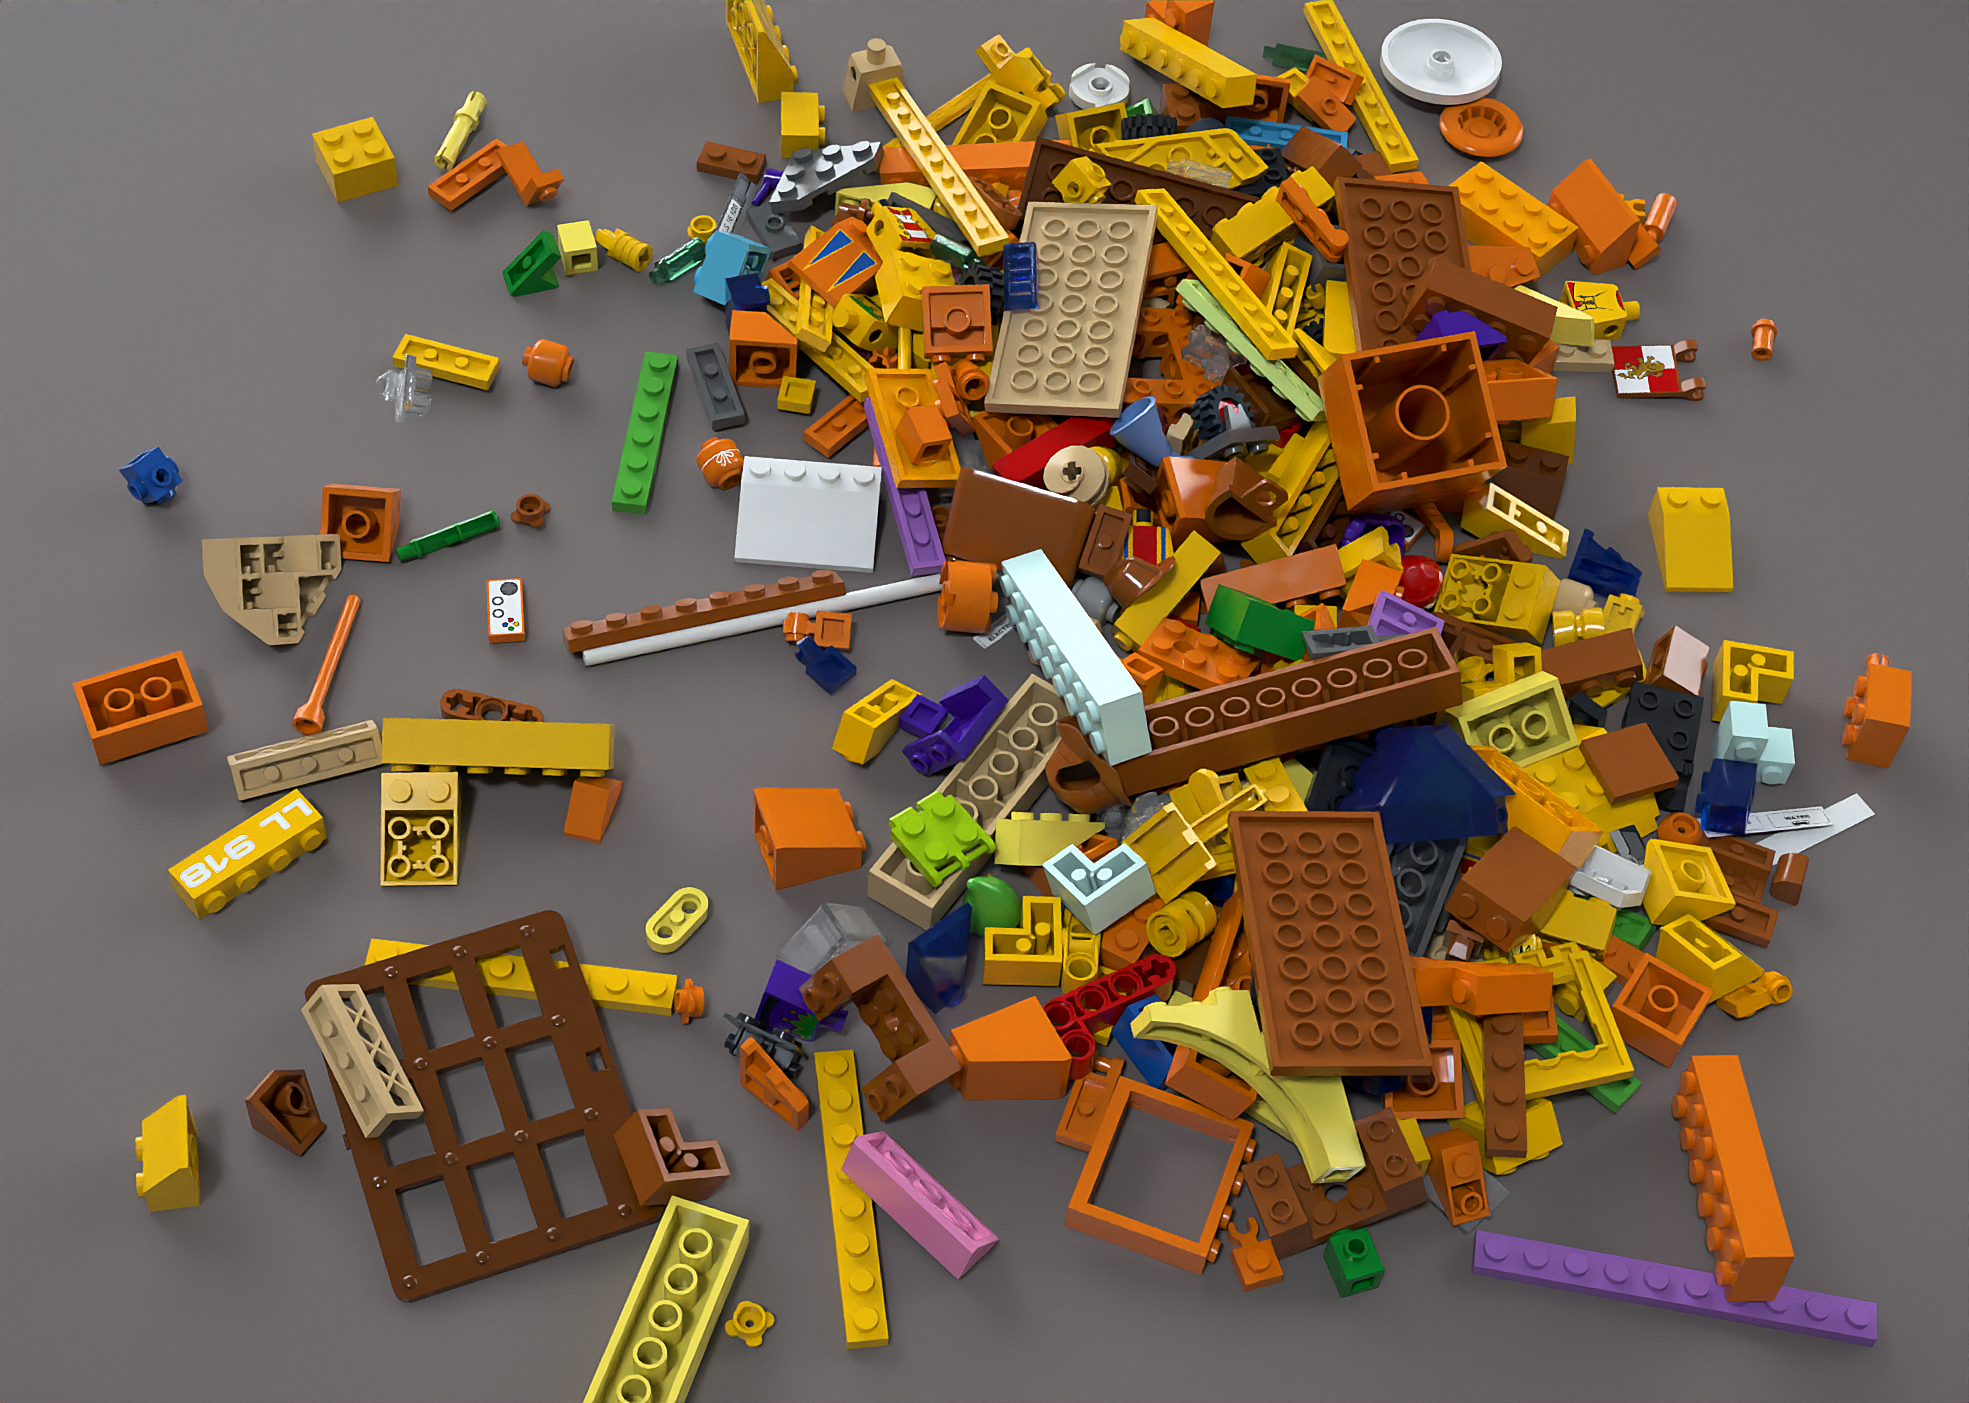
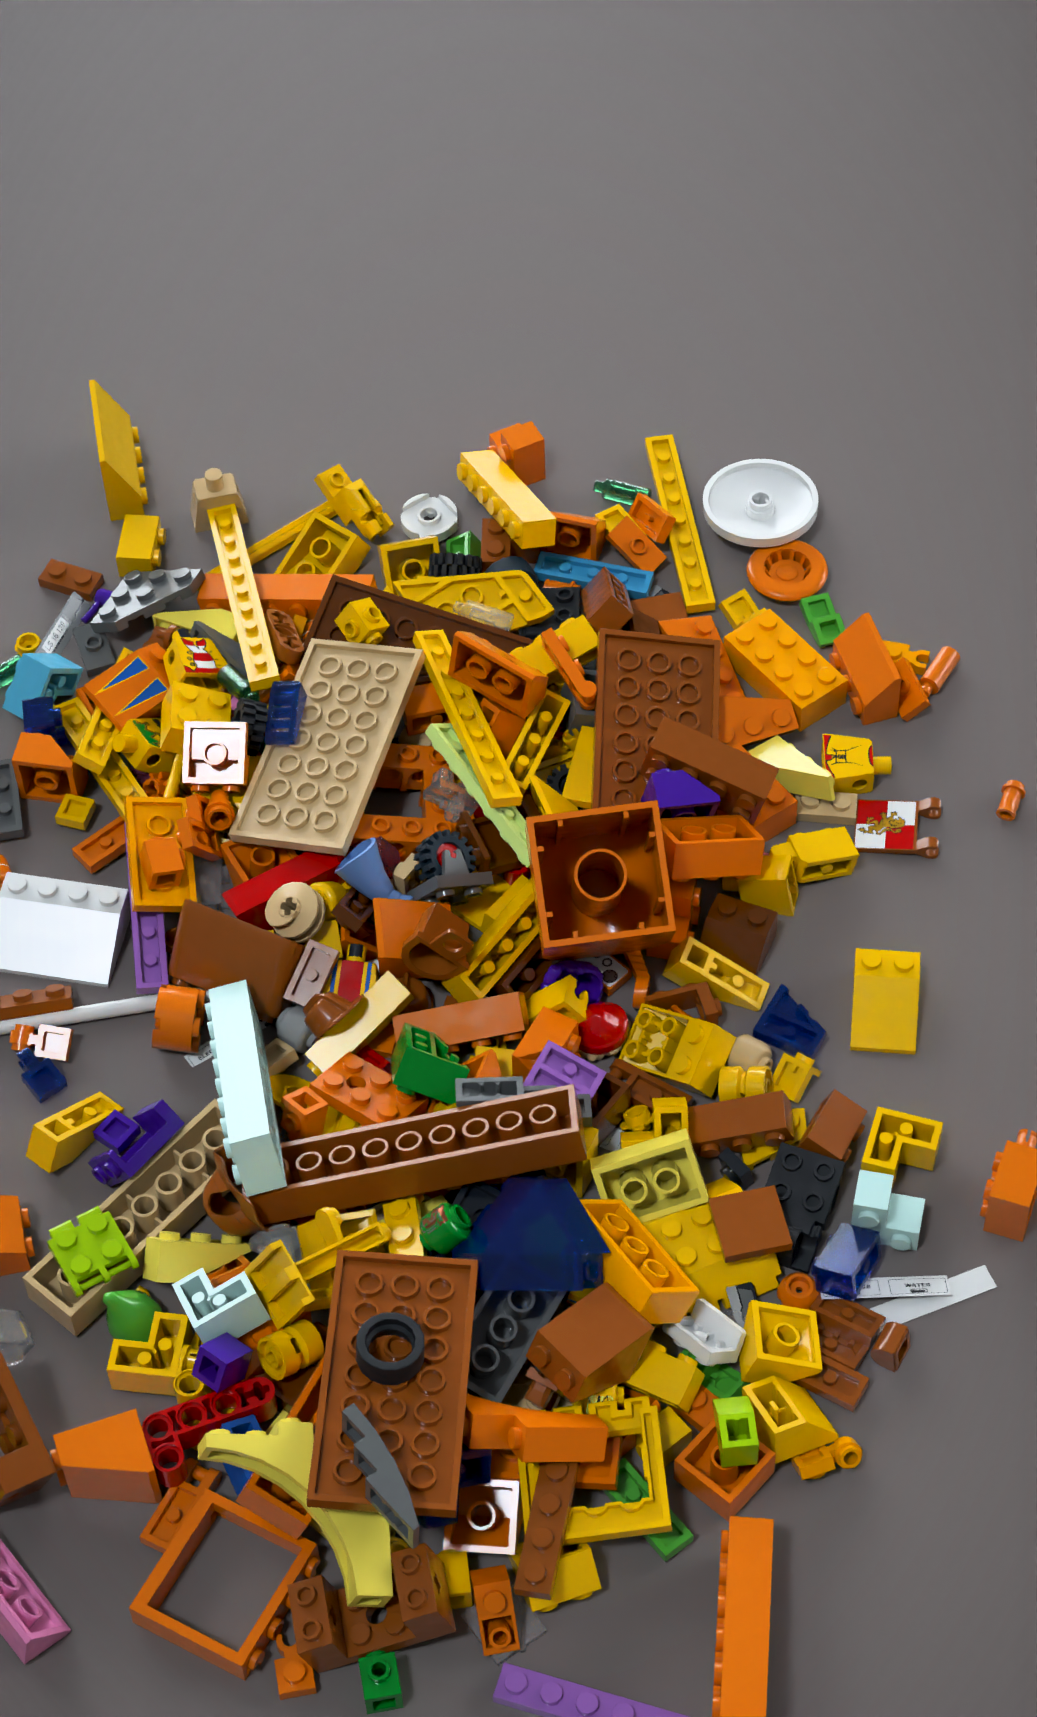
camera: 15 degrees right, 0 degrees up
(939, 960) = (74, 1364): clear blue slope -> none
(1118, 940) = (222, 1362): none -> dark purple brick
(1240, 226) = (496, 674): none -> orange slope
(1315, 927) = (390, 1372): none -> black tyre
(1326, 785) = (444, 1228): none -> green head
(1360, 1042) = (383, 1480): none -> dark grey slope
(1445, 166) = (739, 609): none -> yellow bracket
(1527, 174) = (821, 618): none -> bright green slope
(1599, 398) = (820, 854): none -> yellow hinge
(1677, 969) = (736, 1431): none -> lime slope

